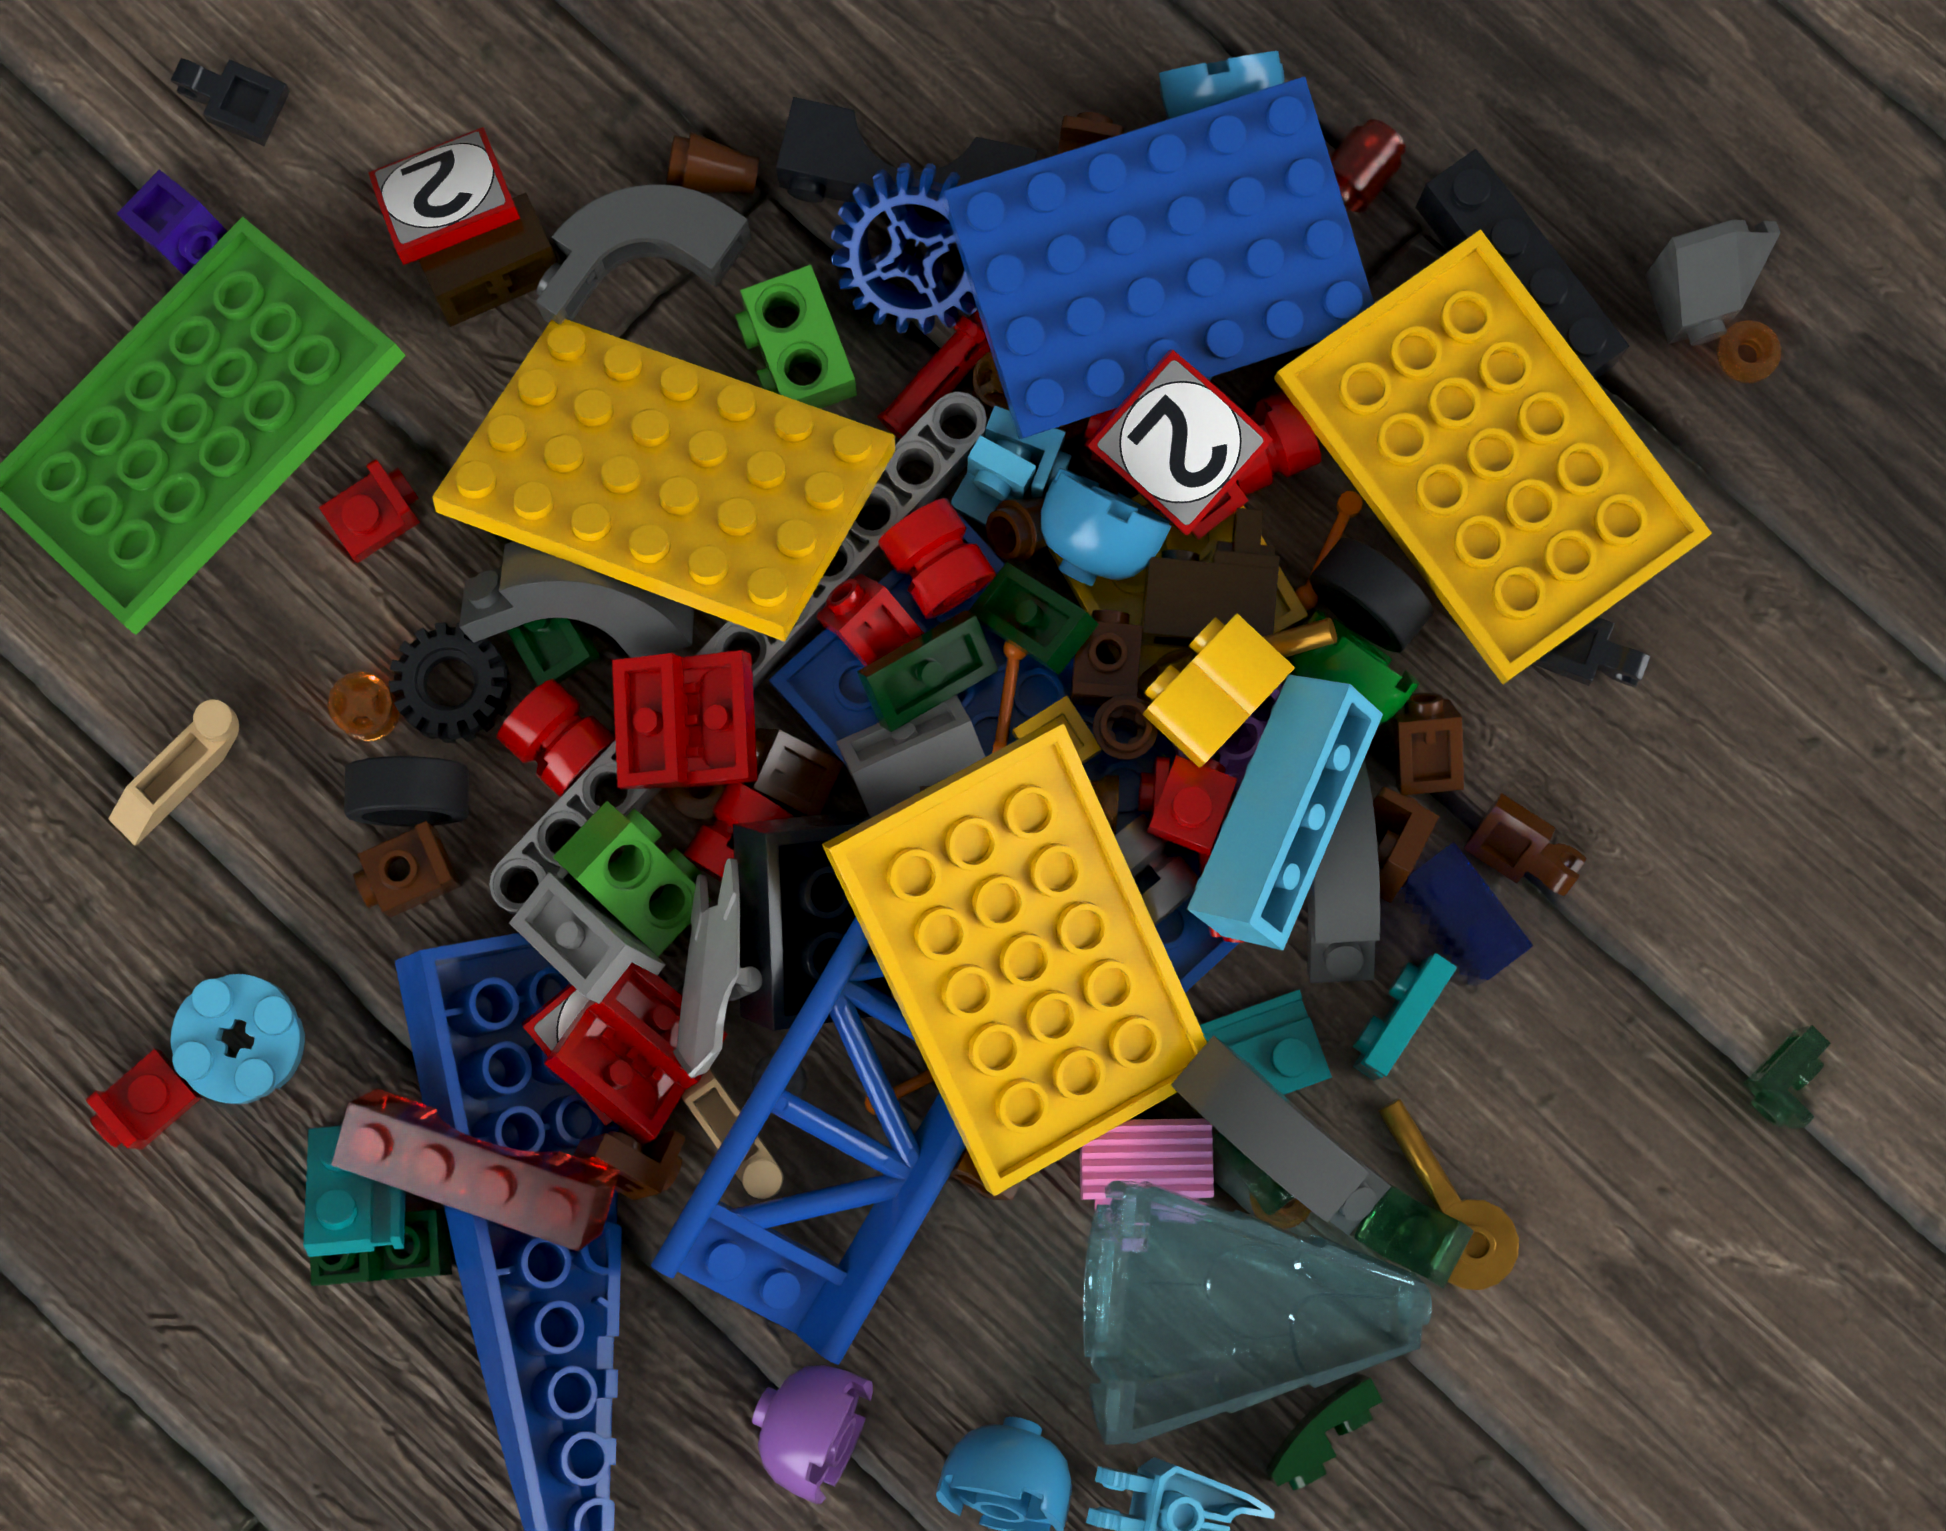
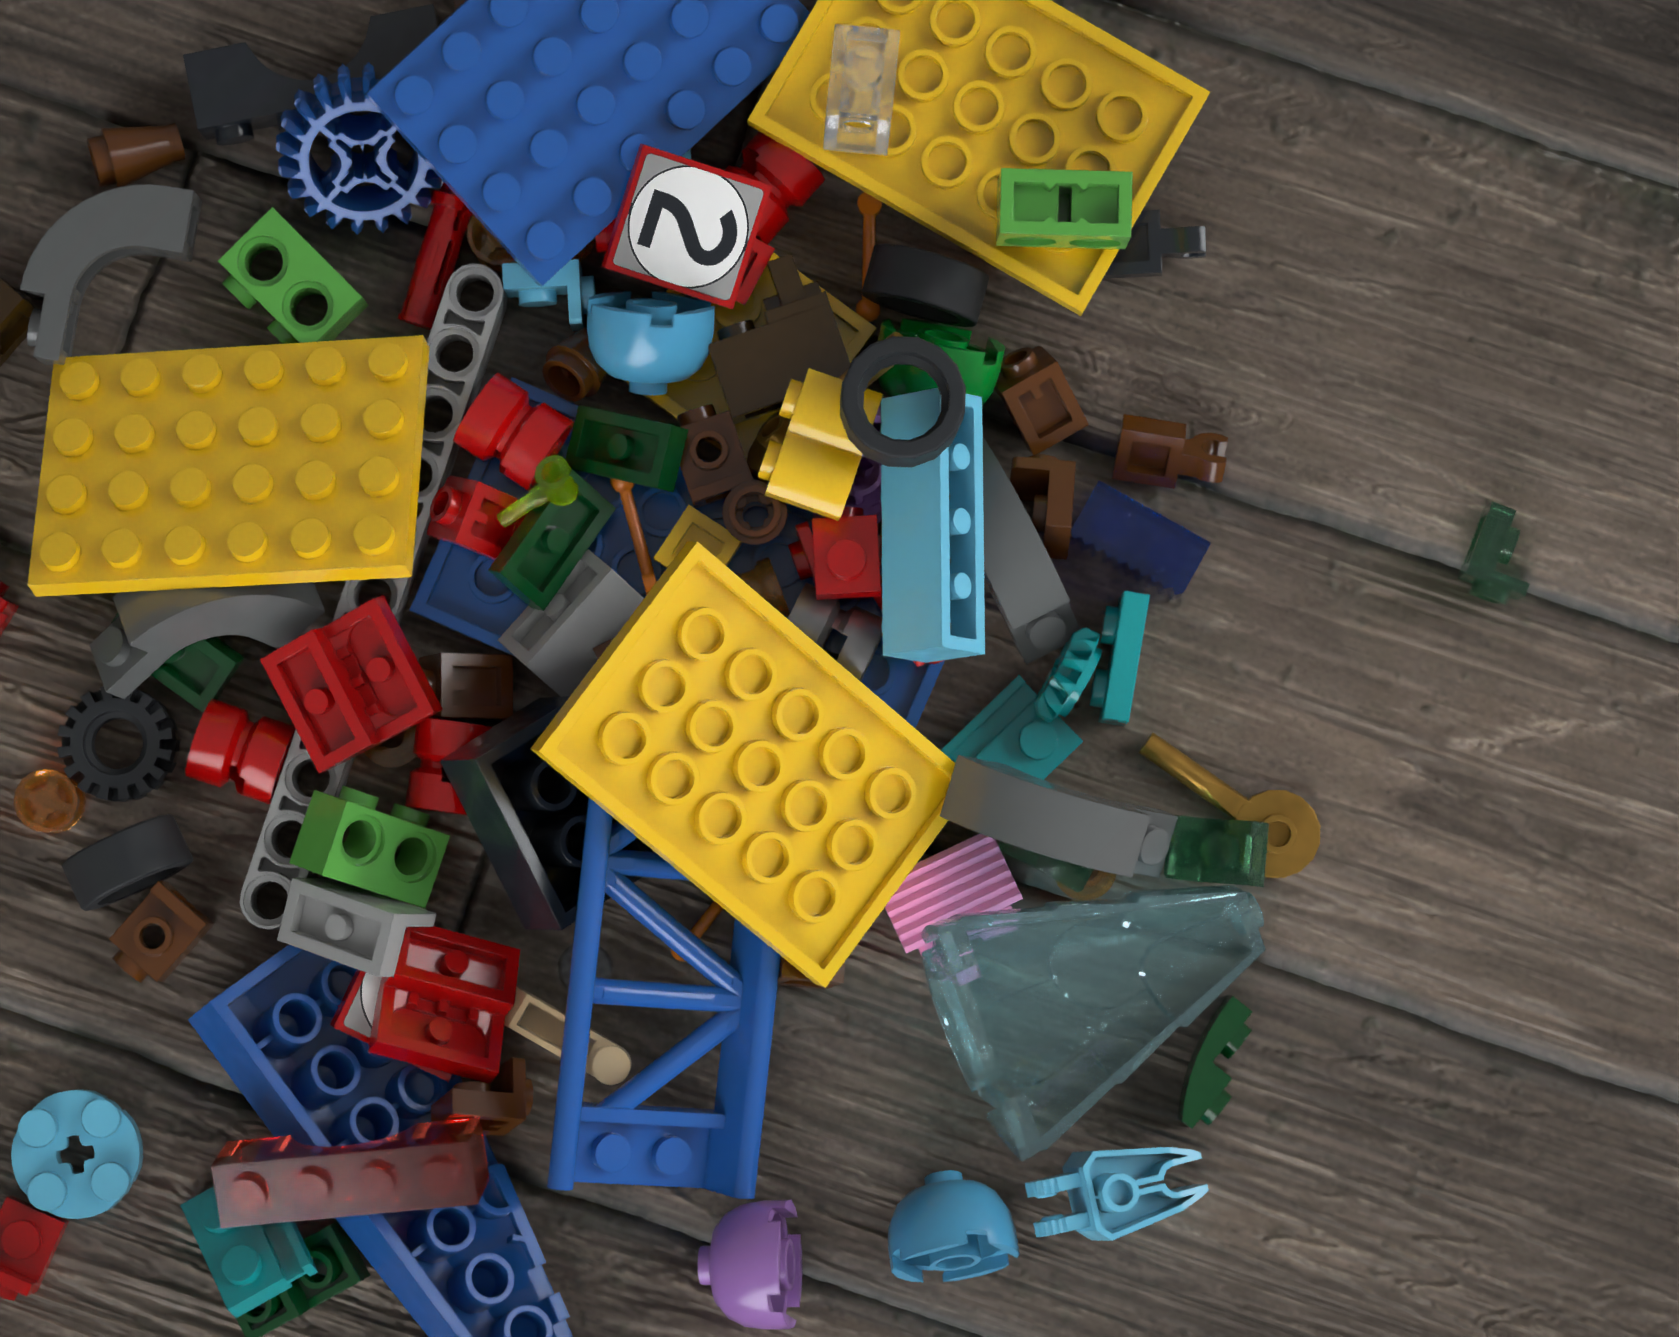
camera: 20 degrees left, 5 degrees up
(712, 973) = (482, 903): light grey shield -> none
(953, 620) = (548, 489): none -> clear neon green hand
(991, 478) = (529, 334): medium azure bracket -> none
(1347, 1009) = (1068, 675): none -> teal gear
(1348, 645) = (904, 352): none -> black tyre
(1398, 383) = (861, 89): none -> clear torso
(1536, 574) = (1064, 208): none -> bright green brick

